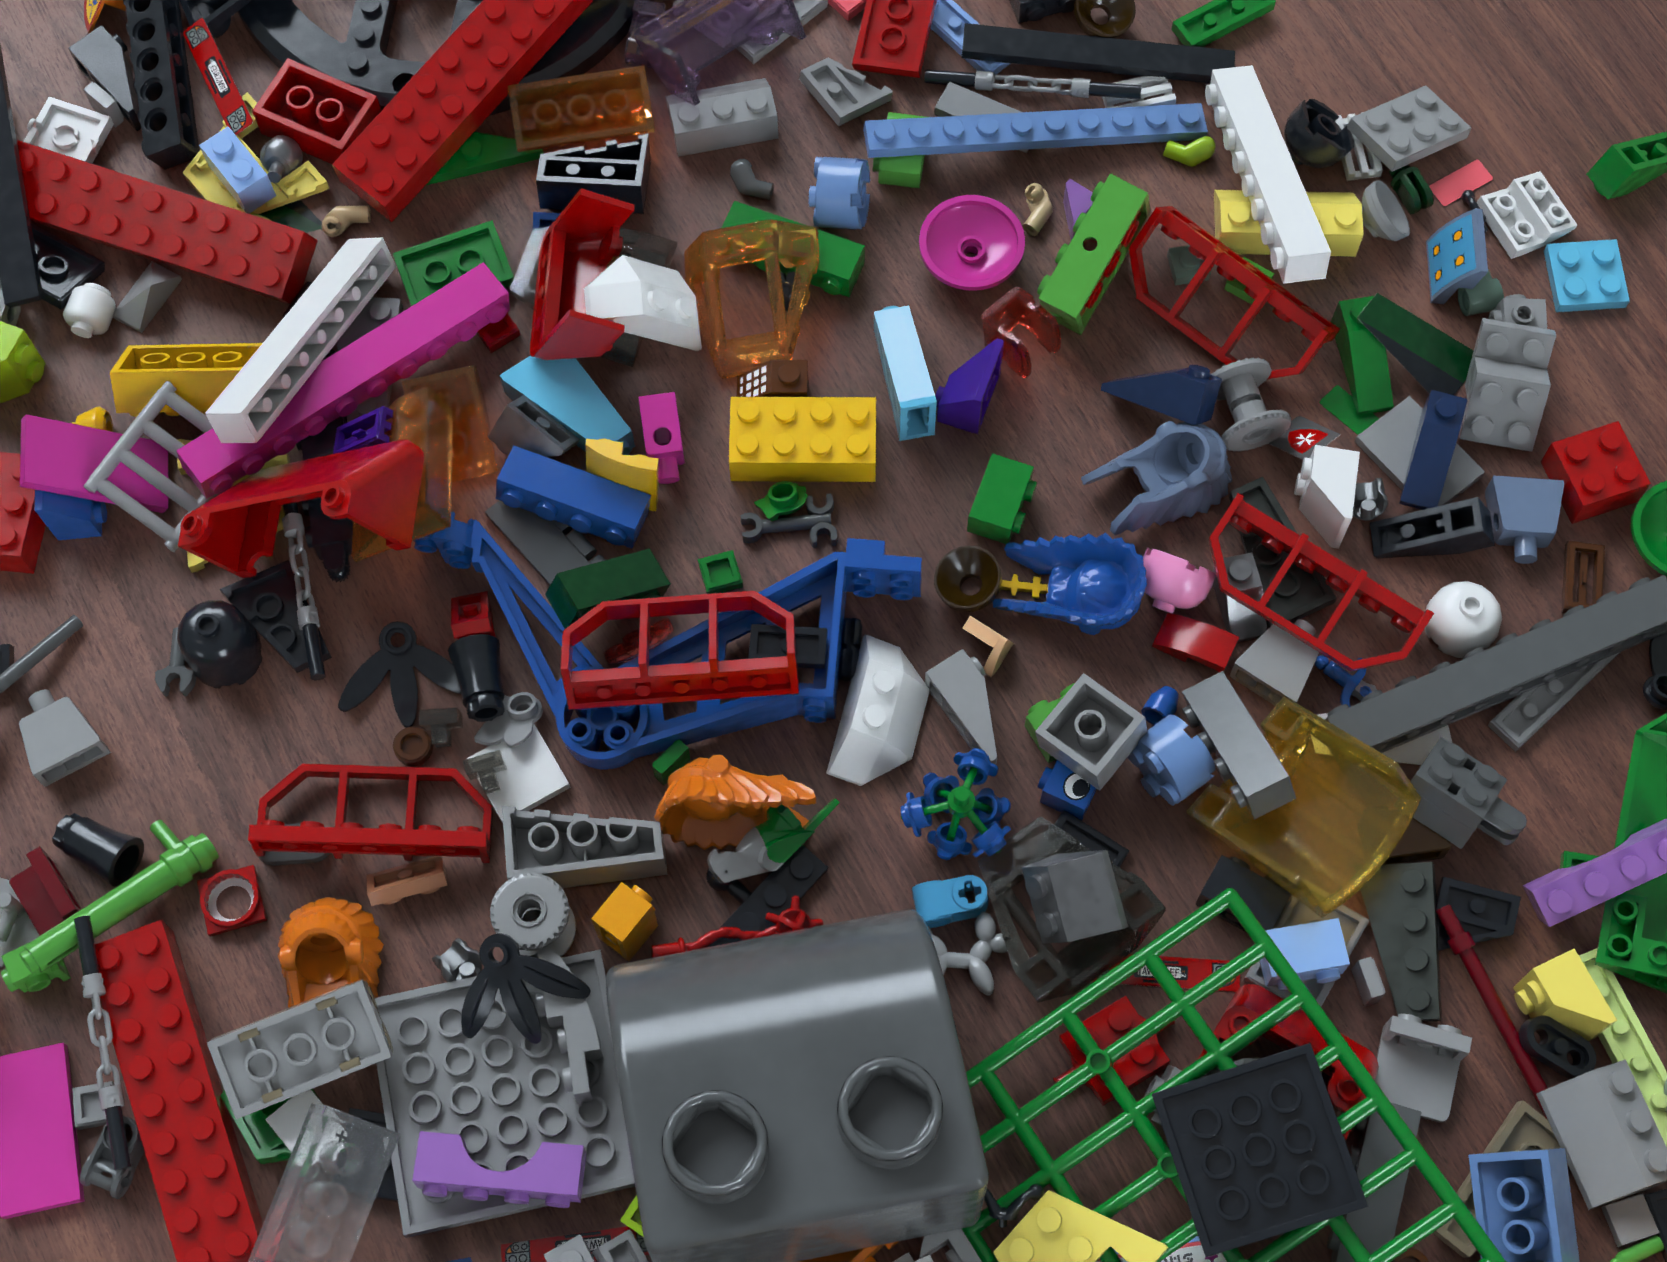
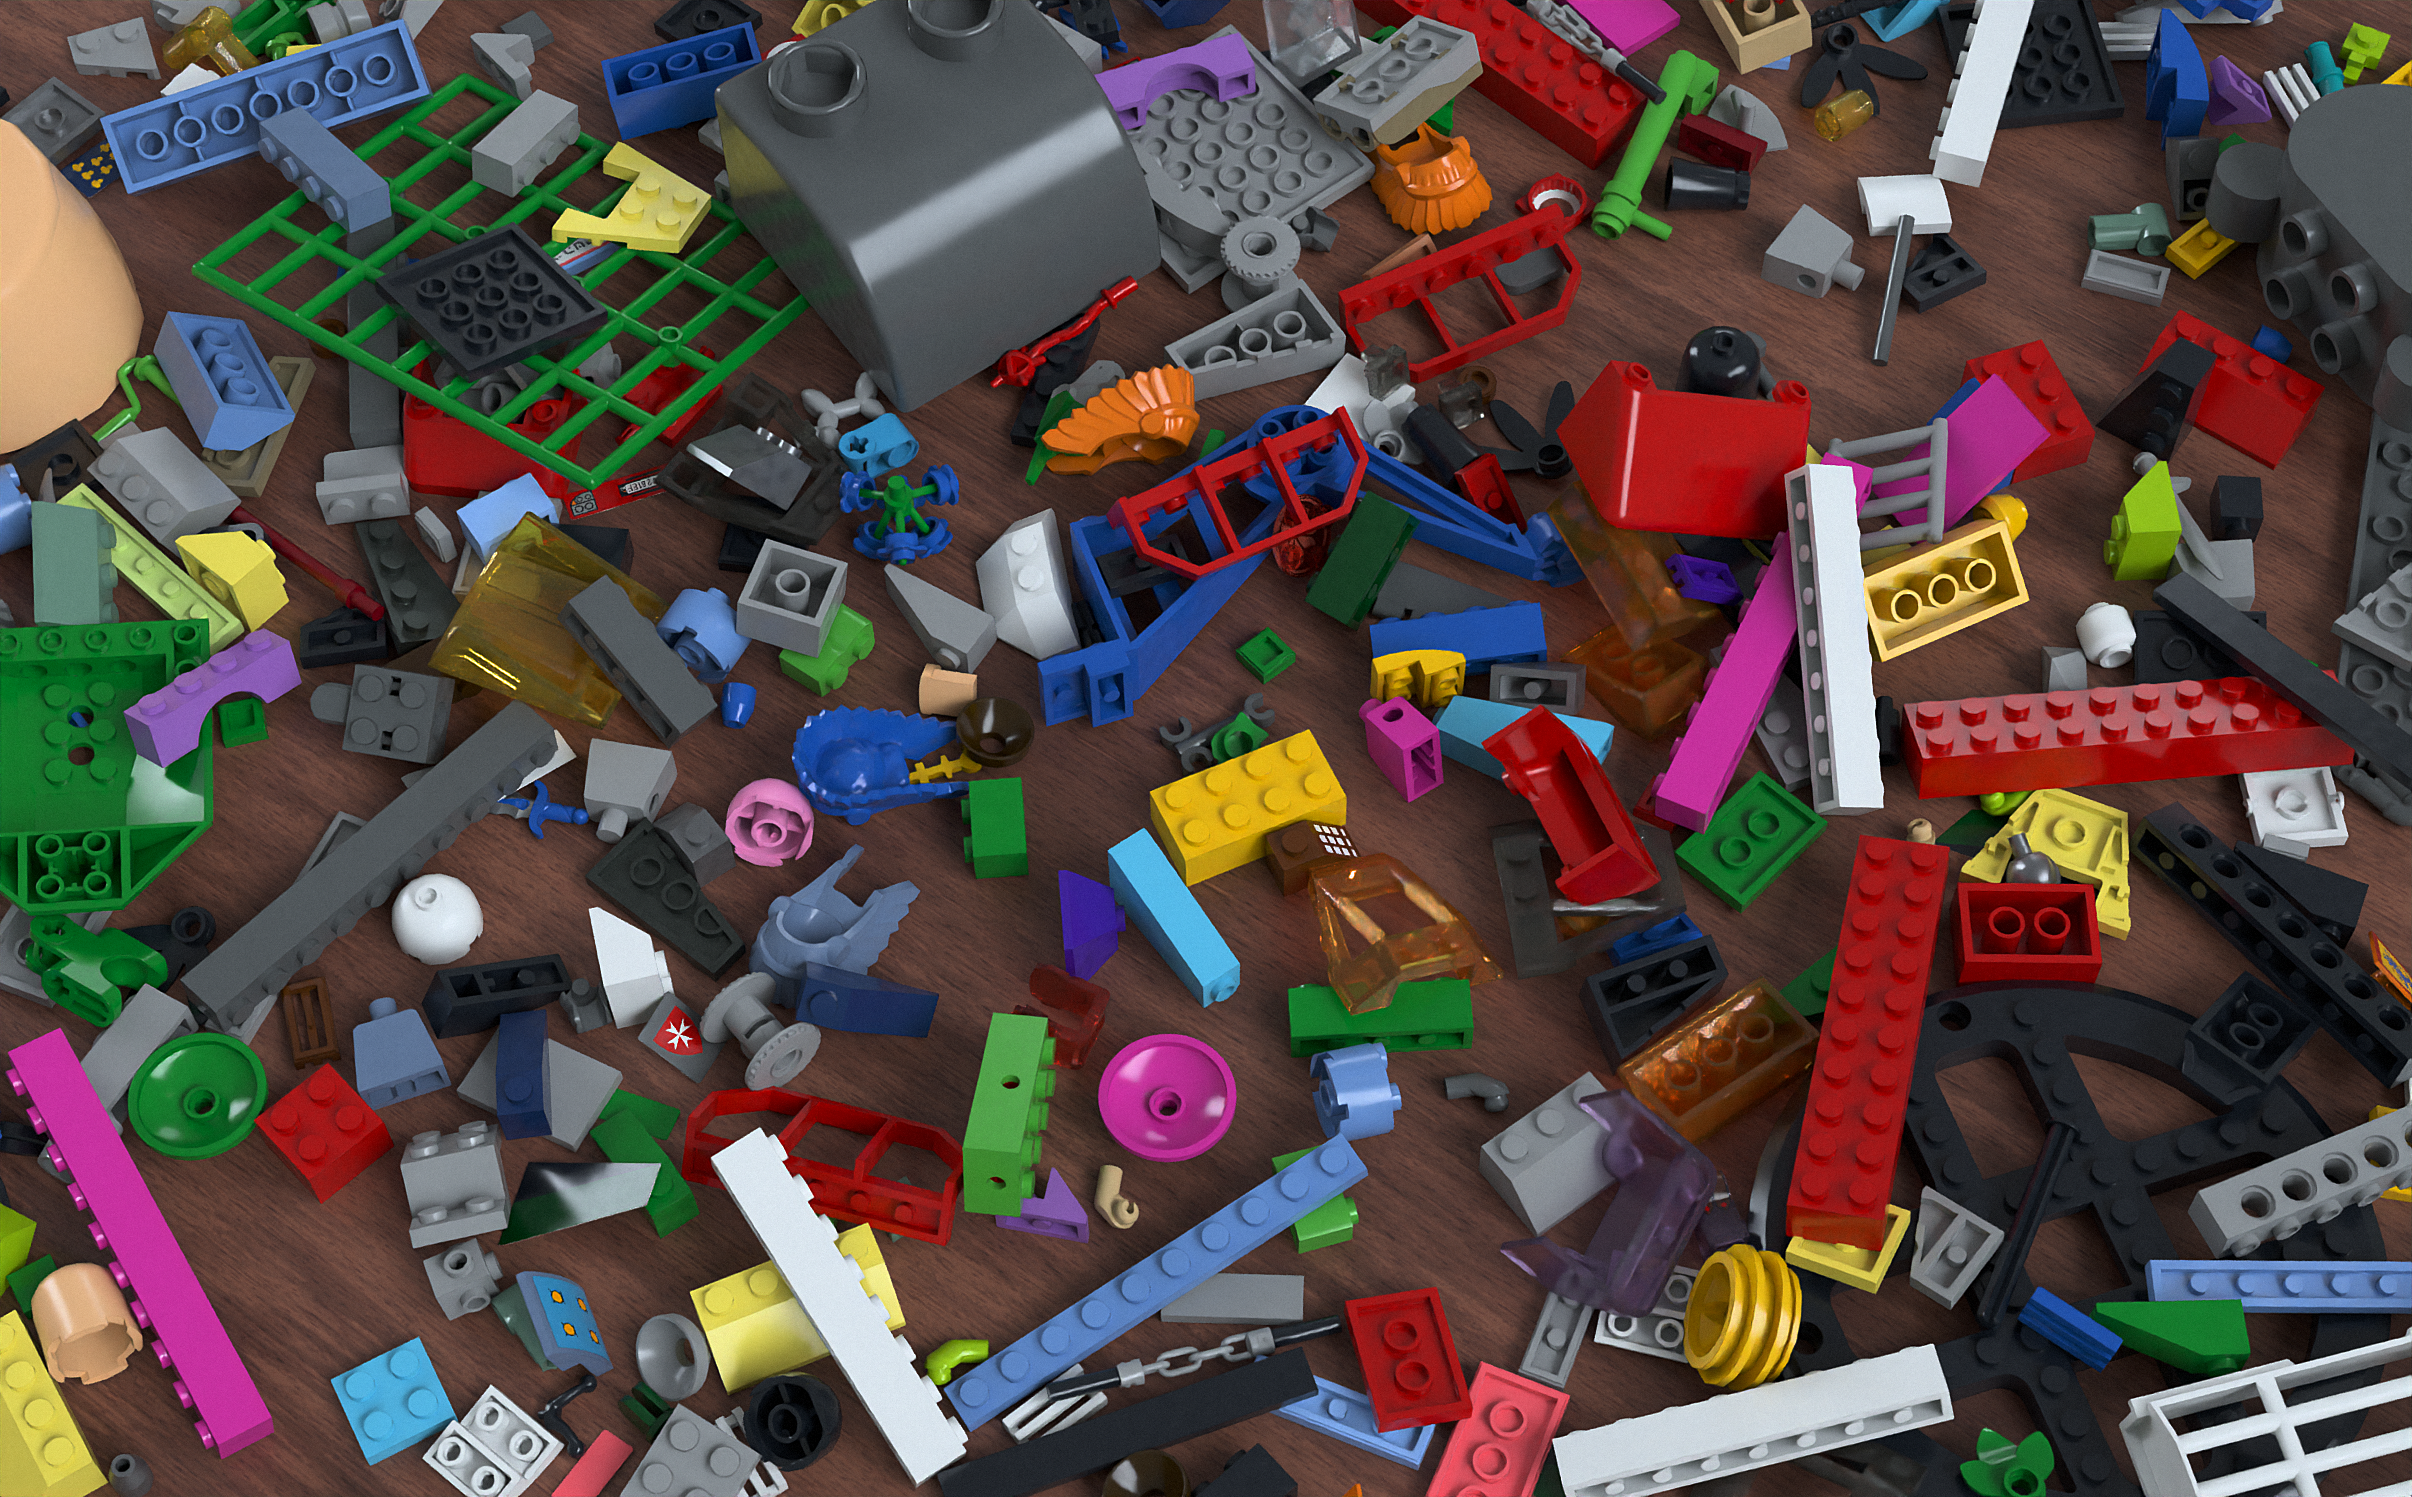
camera: 155 degrees right, 10 degrees down
(217, 77) = (2174, 928): sticker -> none
(237, 170) = (2058, 816): light blue brick -> none
(508, 977) = (1259, 196): black plant -> none
(625, 920) = (1173, 298): light orange brick -> none
(646, 300) = (1489, 831): white wedge -> none
(842, 91) = (1429, 1250): light grey wing -> none
(1035, 1192) = (713, 225): black piece -> none
(1195, 640) = (718, 774): red slope -> none
(1339, 577) = (602, 883): red plate -> none

